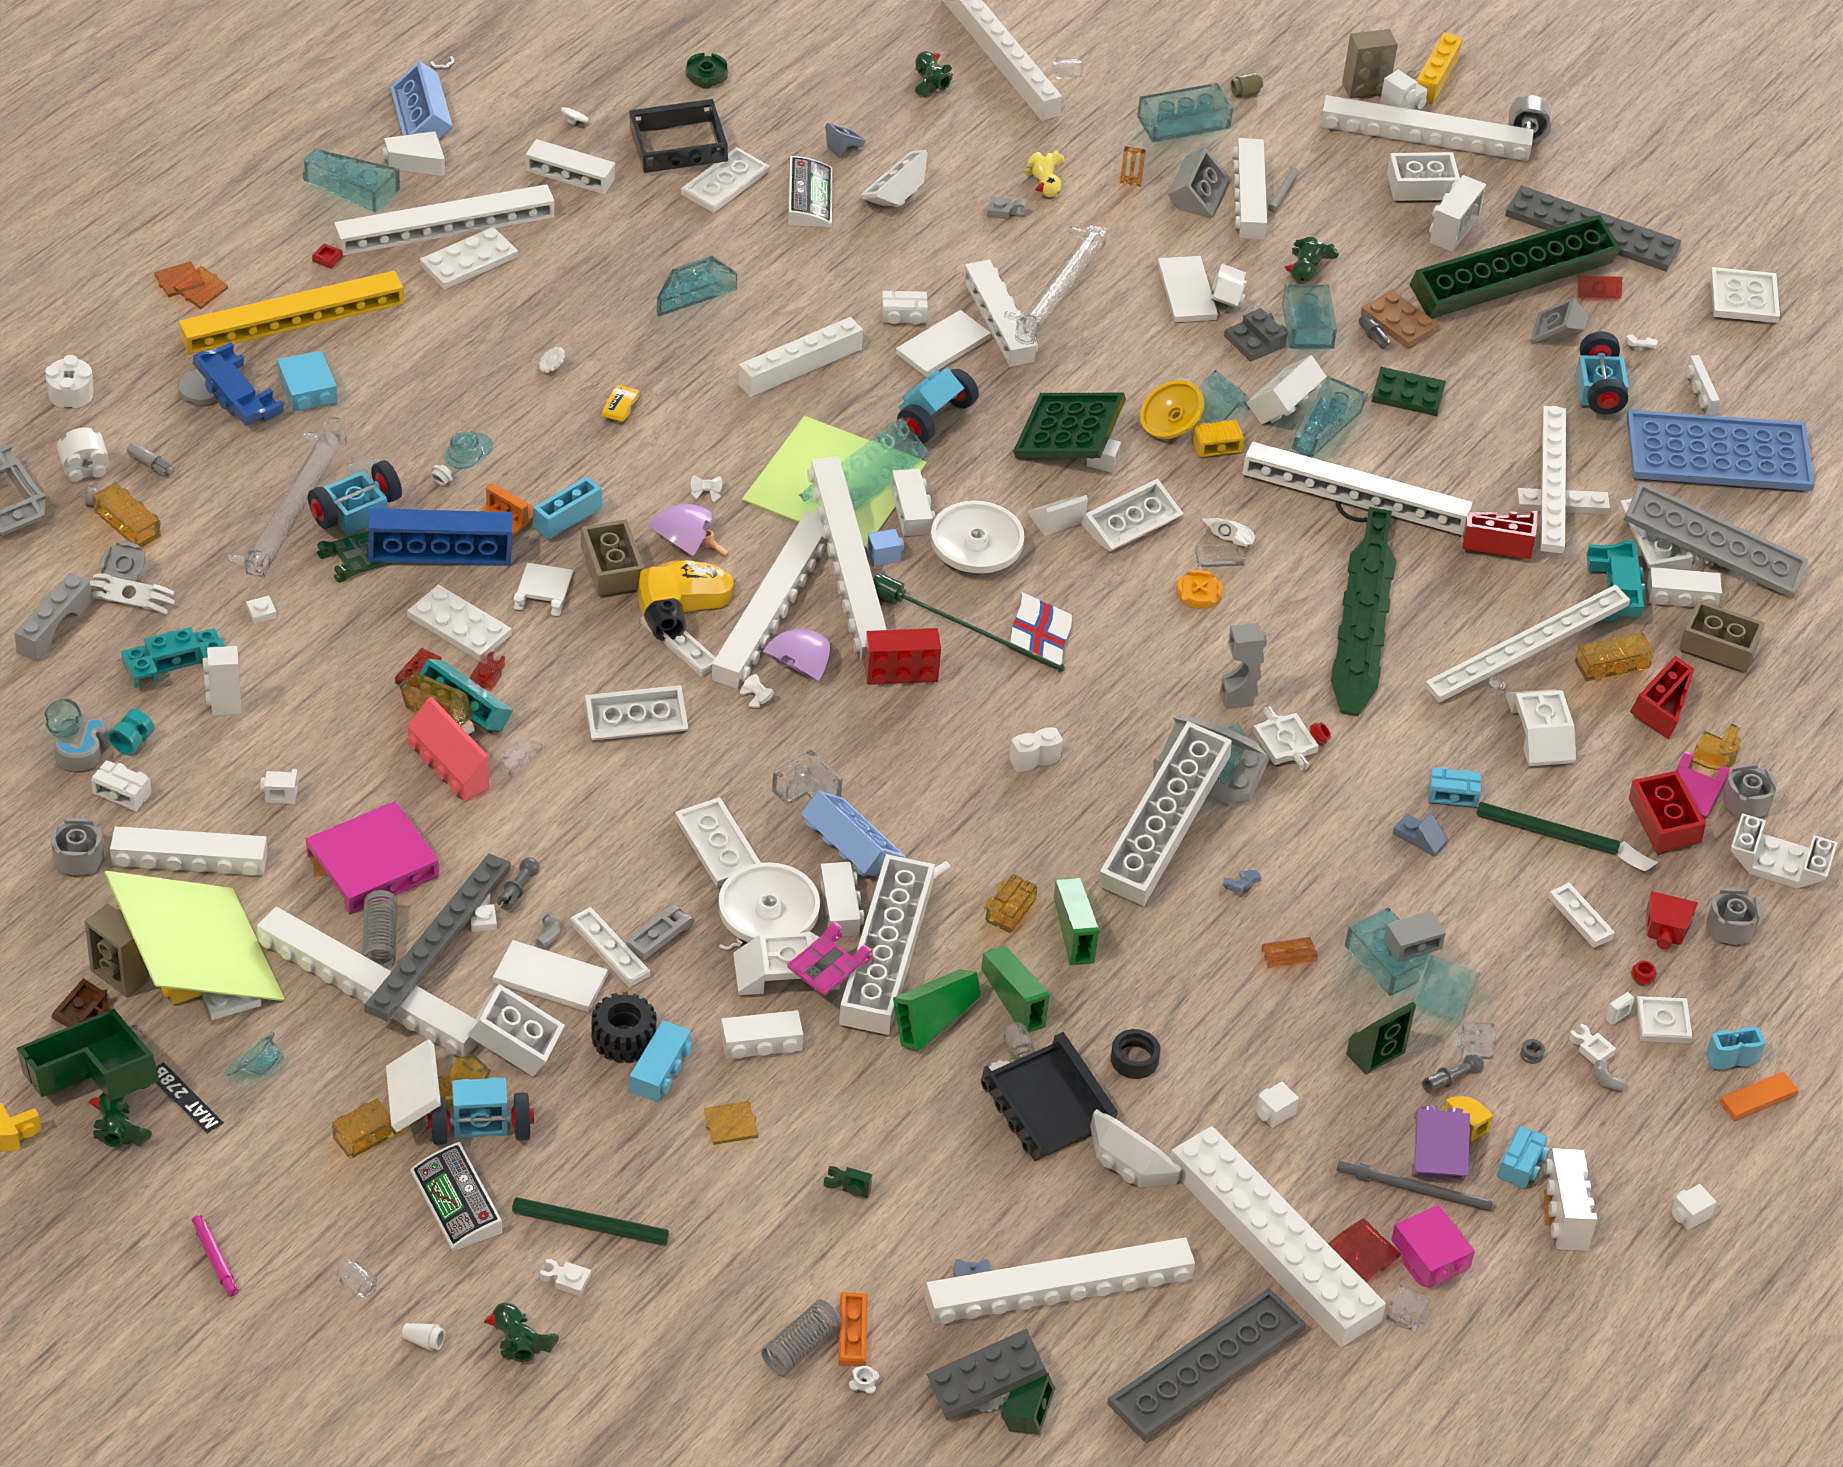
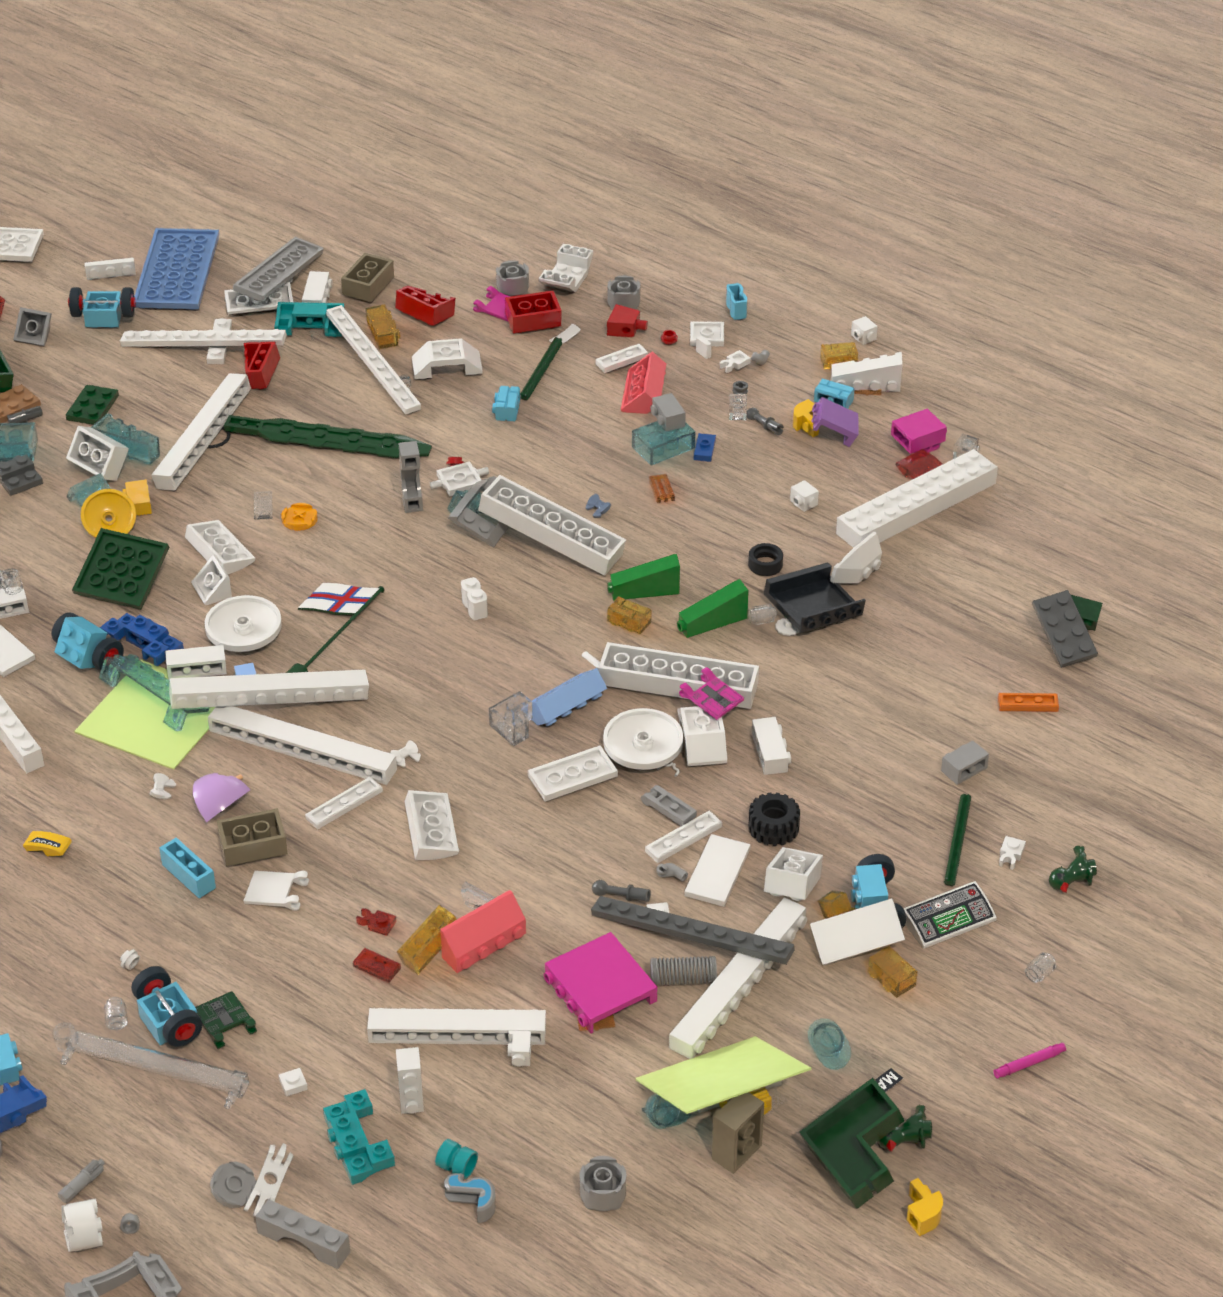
camera: 85 degrees left, 5 degrees down
(63, 718) = (440, 1211): clear light blue hair -> none
(81, 1004) = (779, 1170): reddish brown slope -> none
(121, 785) = (521, 1162): white brick -> none
(126, 515) = (163, 1190): clear yellow brick -> none
(188, 851) = (599, 1103): white brick -> none
(318, 735) = (453, 1026): none -> white brick
(424, 1335) = (1085, 925): white cone -> none
(440, 536) = (223, 947): blue brick -> none
(459, 622) = (315, 943): white plate -> none
(467, 449) = (91, 947): clear light blue piece -> none
(485, 708) = (394, 938): teal brick -> none
(503, 501) = (183, 913): orange bracket -> none
(660, 1061) = (813, 802): medium azure brick -> none
(681, 588) = (296, 802): yellow piece -> none
(726, 1237) = (964, 762): none -> light grey brick
(731, 1122) = (850, 767): clear yellow piece -> none
(783, 1354) = (1064, 735): light grey piece -> none
(801, 650) = (369, 721): lavender brick -> none
(840, 897) = (619, 701): white brick -> none
(853, 1181) = (903, 697): dark green plate -> none
(864, 1373) = (1072, 695): white plate -> none
(902, 656) = (381, 663): red brick -> none
(933, 1006) = (738, 649): green slope -> none
(959, 460) = (144, 634): none -> blue bracket
(962, 1268) = (966, 647): sand blue piece -> none
(1059, 1280) = (973, 600): white brick -> none
(1206, 1364) = (1027, 537): dark grey plate -> none
(1230, 530) = (239, 496): white hair -> none
(1364, 1172) = (854, 461): dark grey bar -> none
(1381, 1040) = (748, 437): dark green slope -> none
(1382, 1002) = (704, 447): none -> blue plate
(1422, 834) = (548, 424): sand blue slope -> none
(1445, 986) = (702, 410): clear light blue brick -> none
(1515, 937) = (643, 383): none -> coral slope
(1622, 1170) = (838, 353): none -> clear yellow brick
(1633, 341) = (57, 291): white piece -> none
(1717, 751) = (469, 289): clear yellow brick -> none
(1758, 1096) = (767, 301): orange tile -> none

